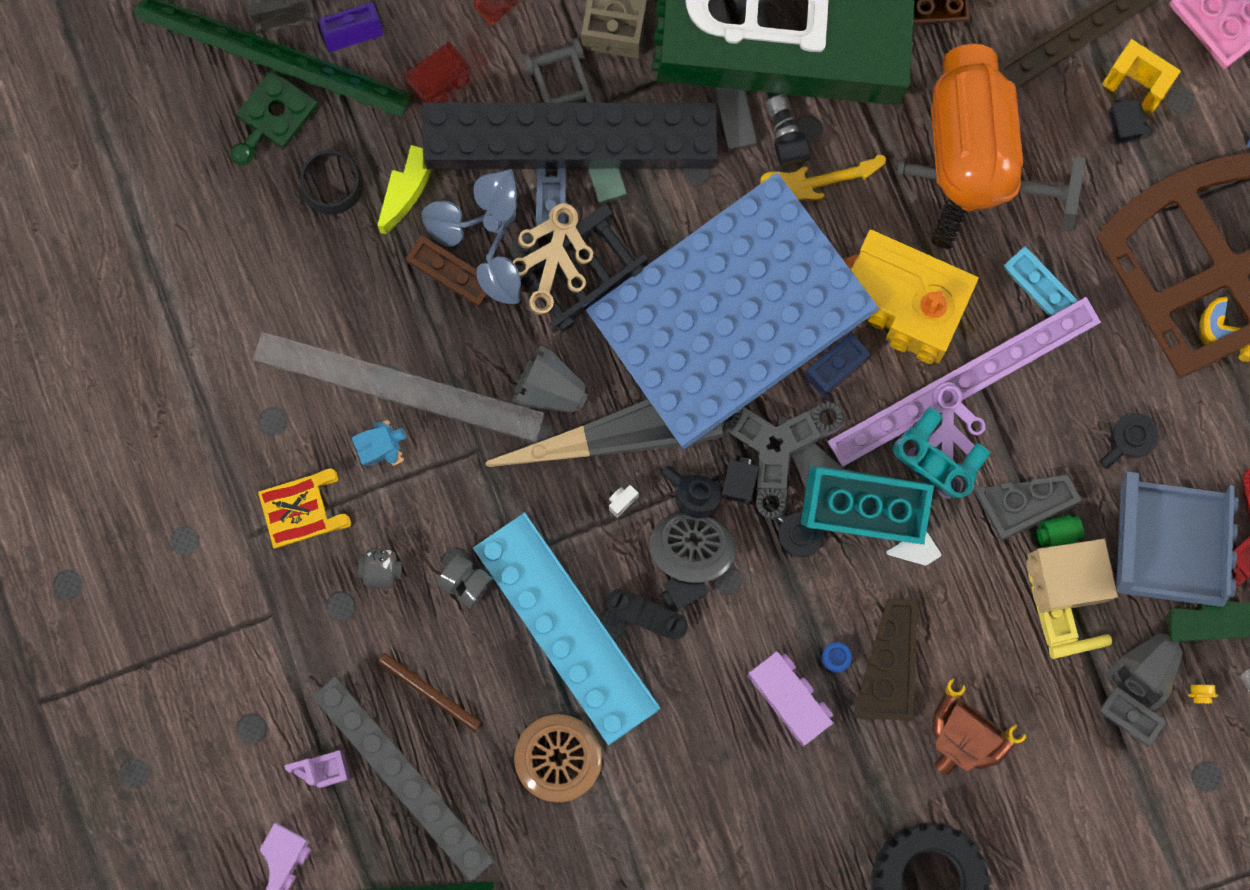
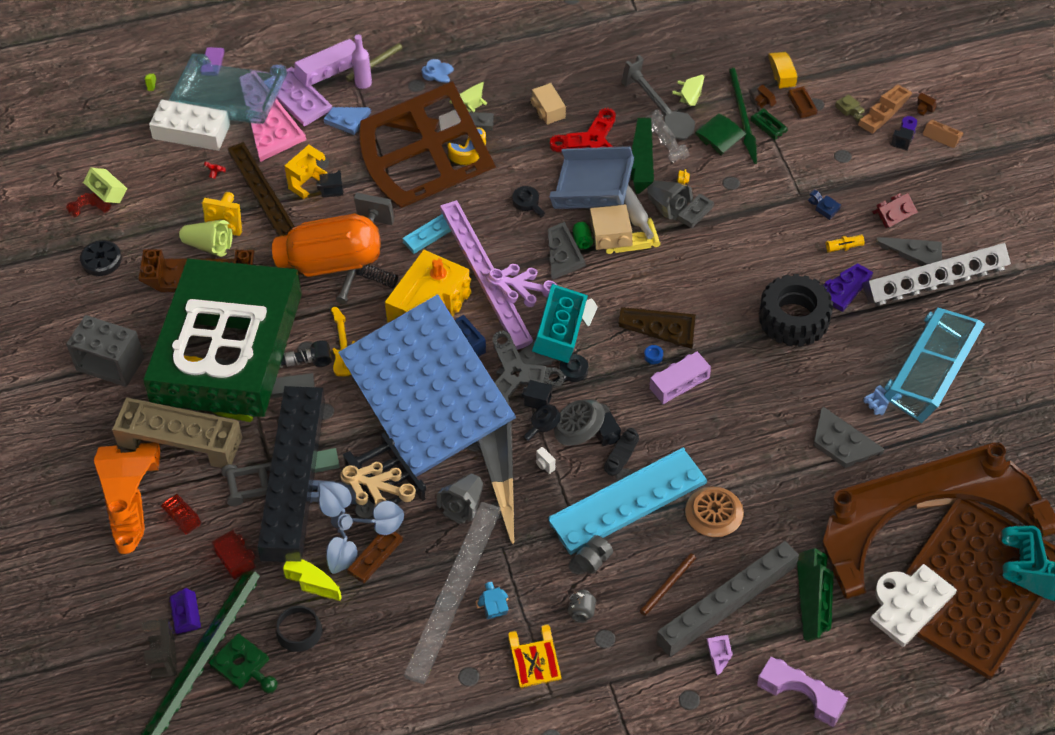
camera: 85 degrees left, 25 degrees down
(933, 464) = (537, 286): teal piece -> none
(968, 736) = (704, 288): copper torso -> none
(1113, 617) = (637, 213): none -> light grey piece

